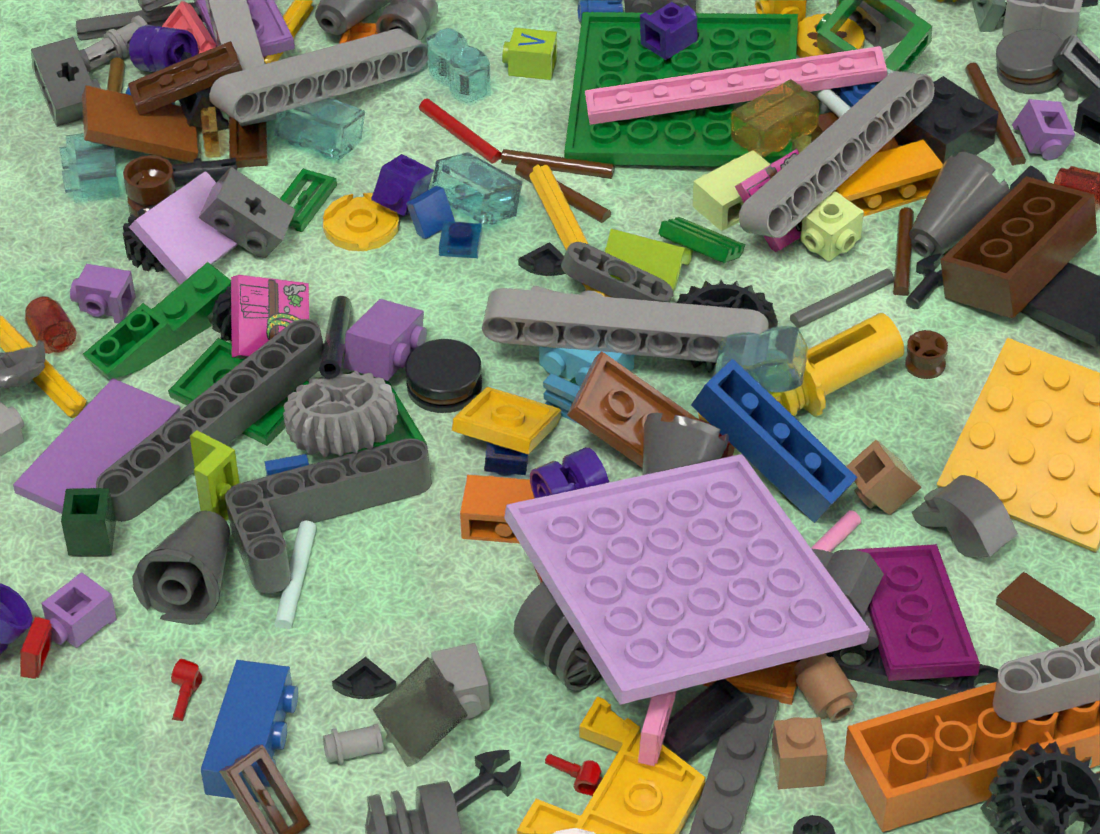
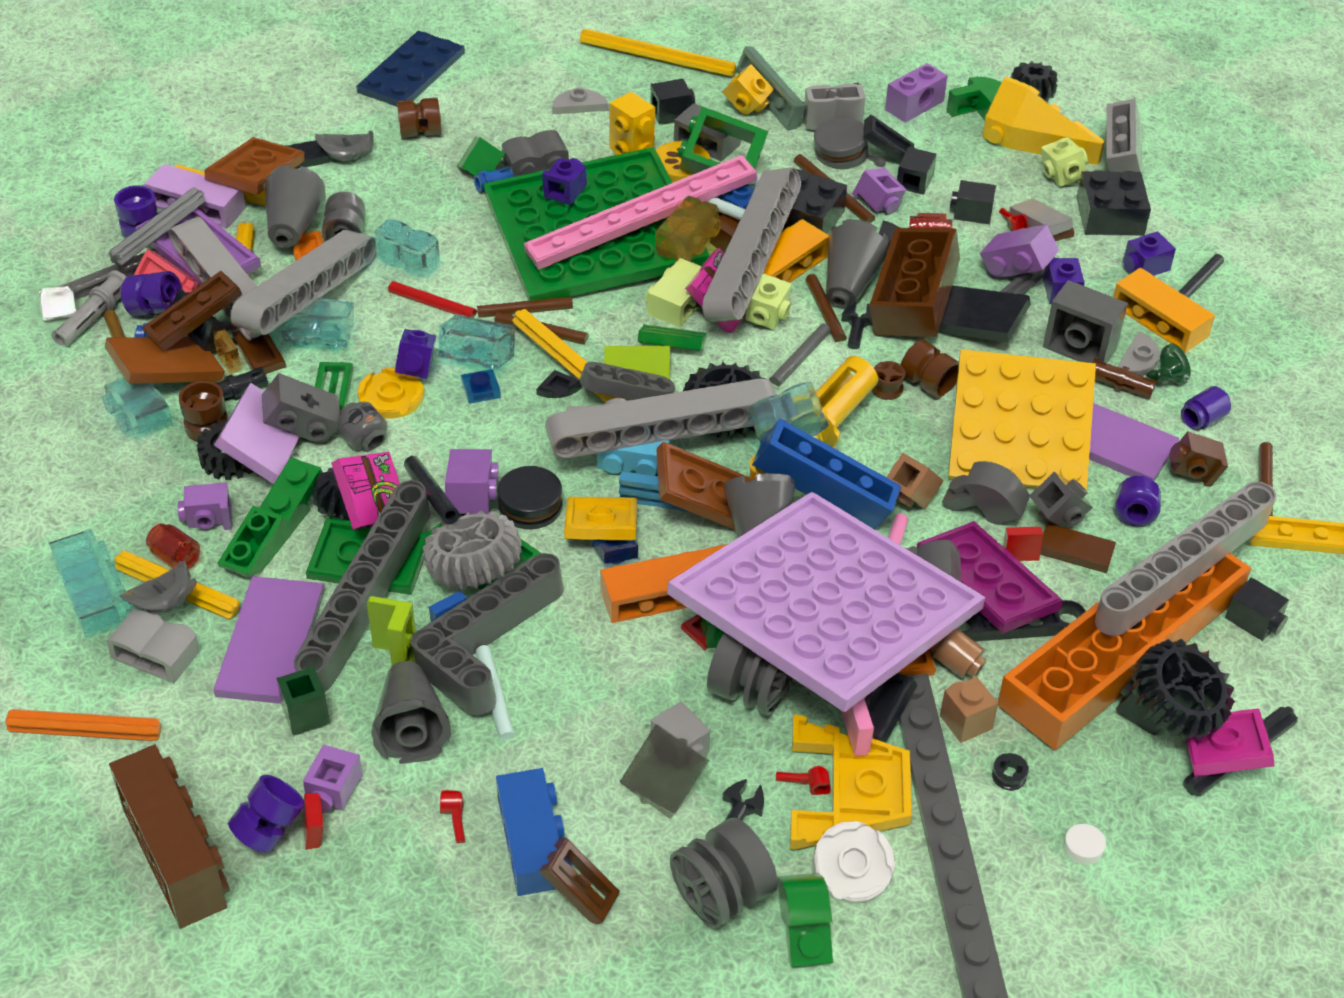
camera: 25 degrees left, 0 degrees up
(53, 68) = (77, 339): dark grey brick -> none
(70, 28) = (57, 303): none -> clear smoke tile
(306, 249) = (362, 426): none -> dark grey head
(352, 743) = (611, 819): light grey pin -> none
(364, 680) = (599, 760): black tile -> none
(430, 211) = (447, 370): blue tile -> none
(531, 53) = (459, 225): lime brick -> none
(576, 472) = (692, 547): dark purple wheel -> none
(975, 348) = (929, 367): none -> reddish brown wheel
(976, 586) = (1024, 542): none -> red tile
(1048, 550) = (1061, 501): none -> dark grey brick

